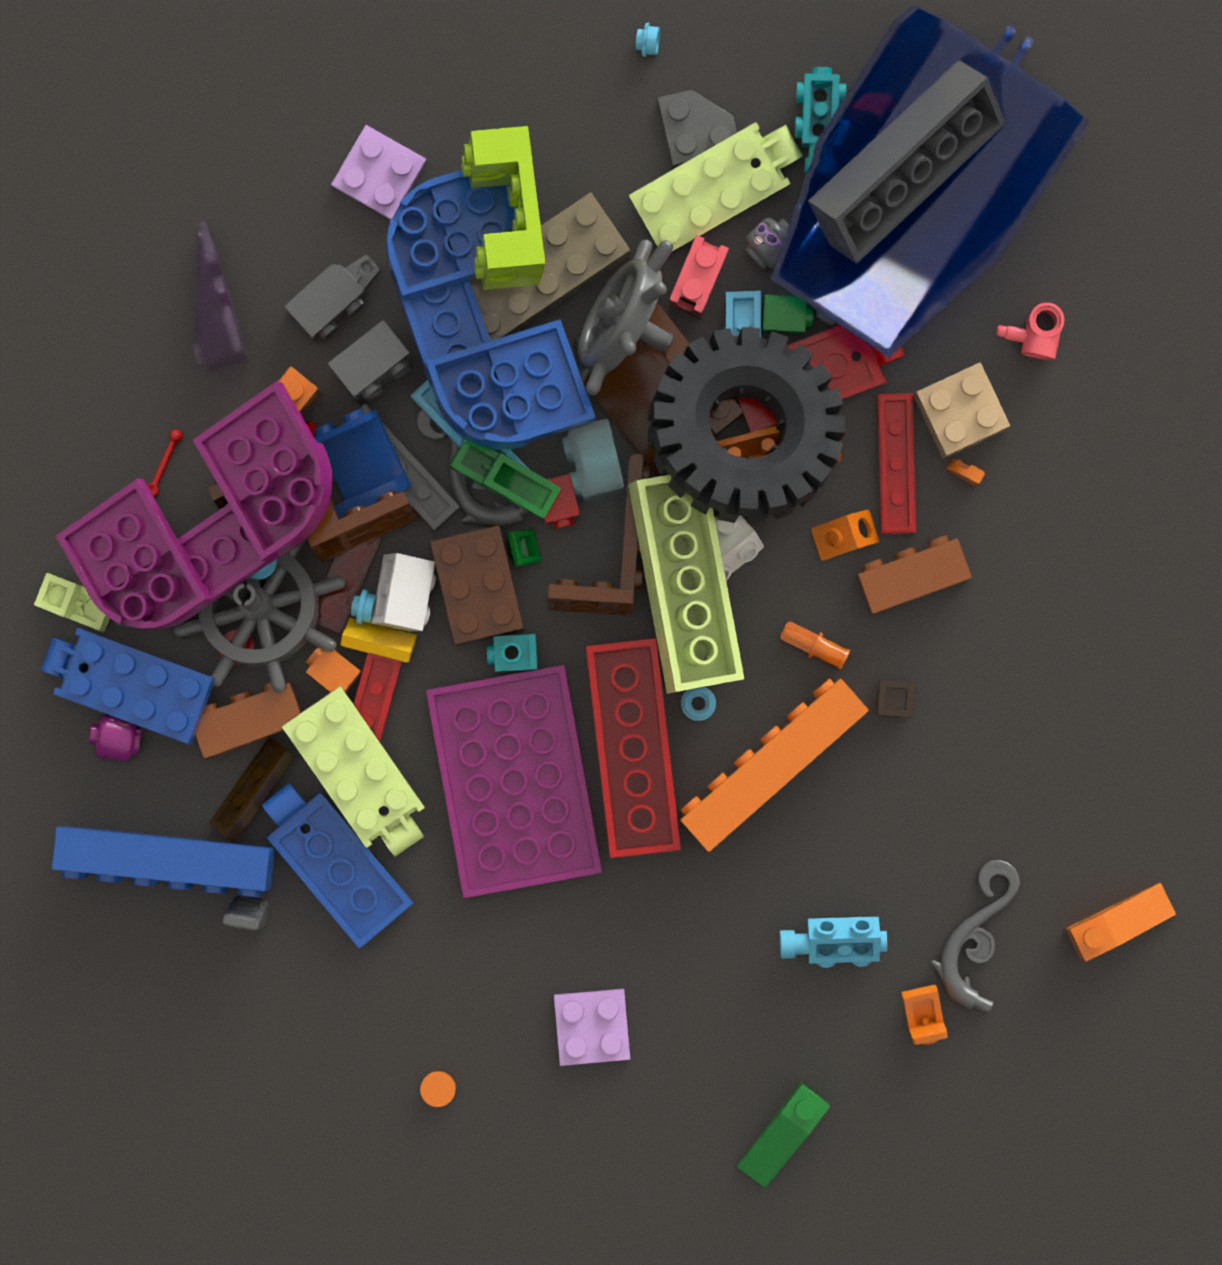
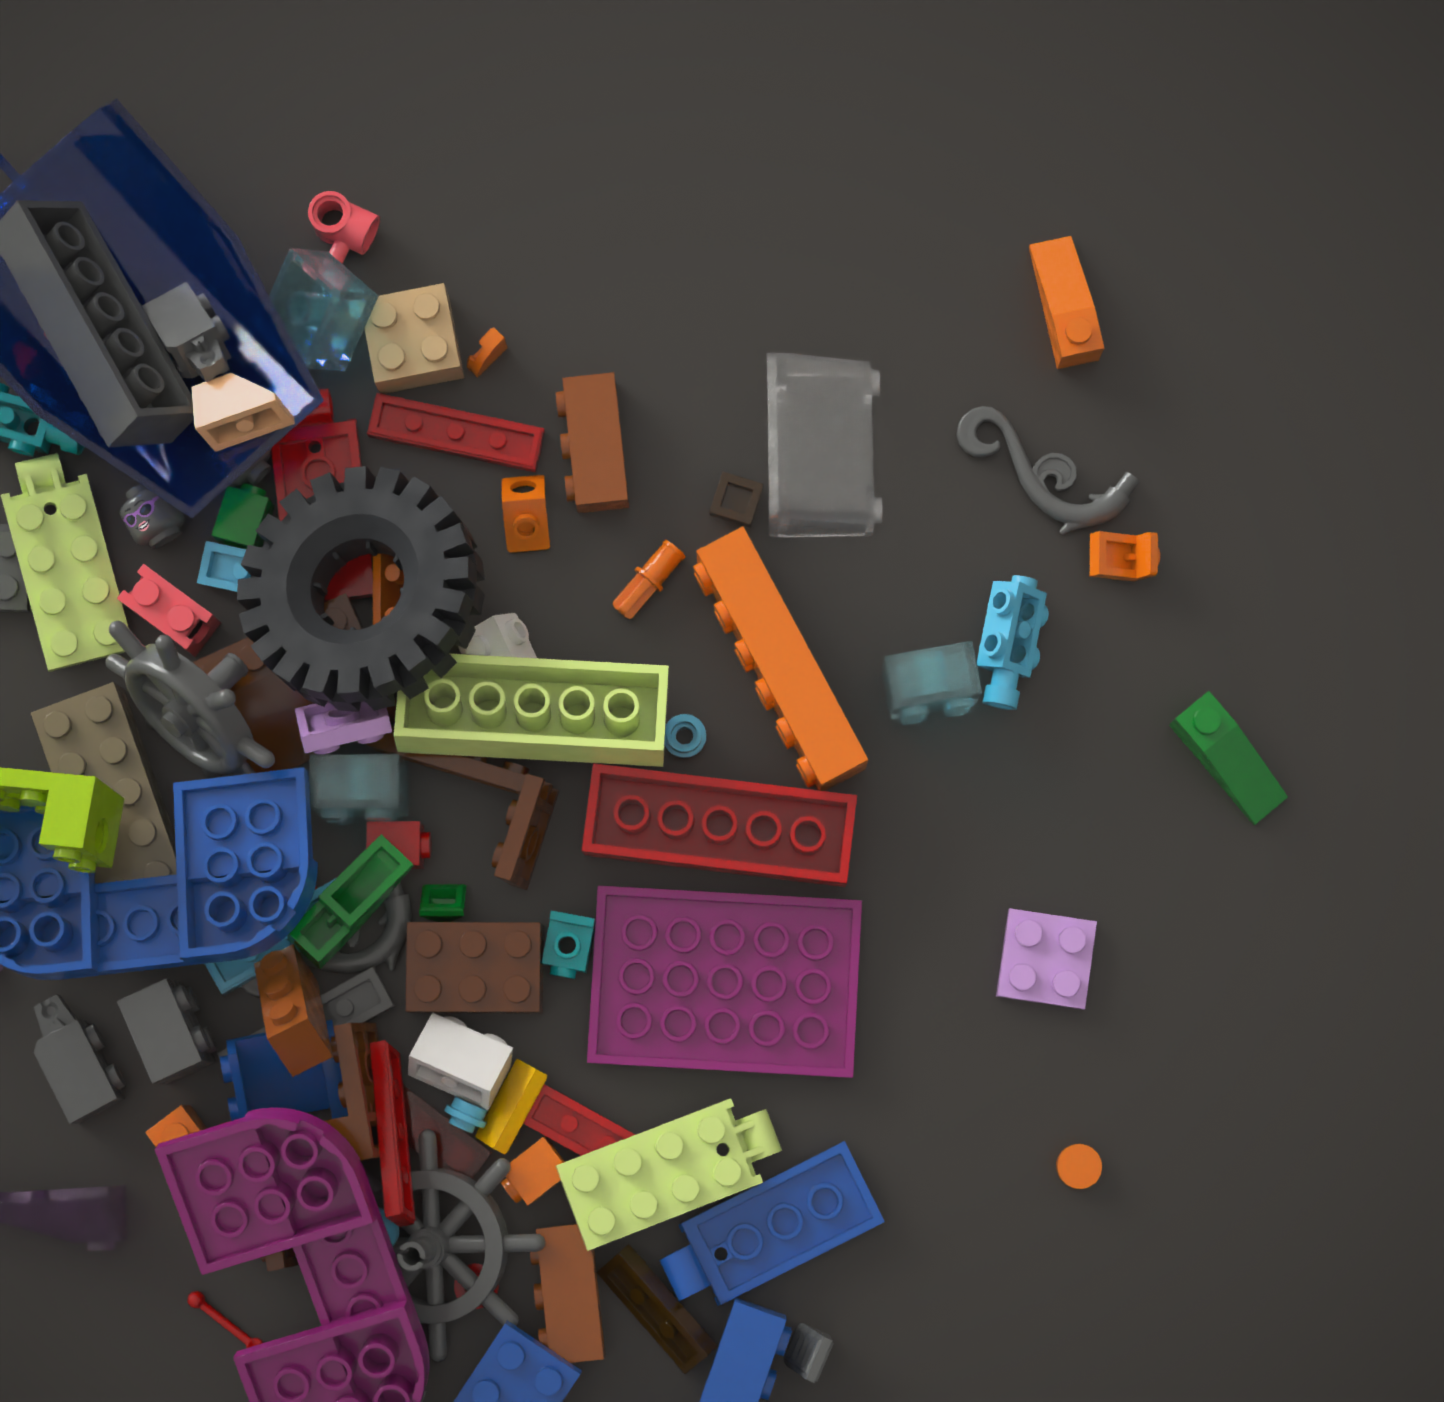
camera: 75 degrees left, 5 degrees down
(334, 555) = (392, 1134): none -> red tile
(409, 455) = (292, 1010): none -> dark orange brick
(631, 427) = (327, 728): none -> lavender plate
(785, 886) = (931, 682): none -> clear light blue brick
(863, 290) = (236, 411): none -> light nougat slope
(918, 236) = (190, 332): none -> dark grey hinge
(954, 755) = (821, 446): none -> clear windscreen
(966, 334) = (321, 307): none -> clear light blue brick

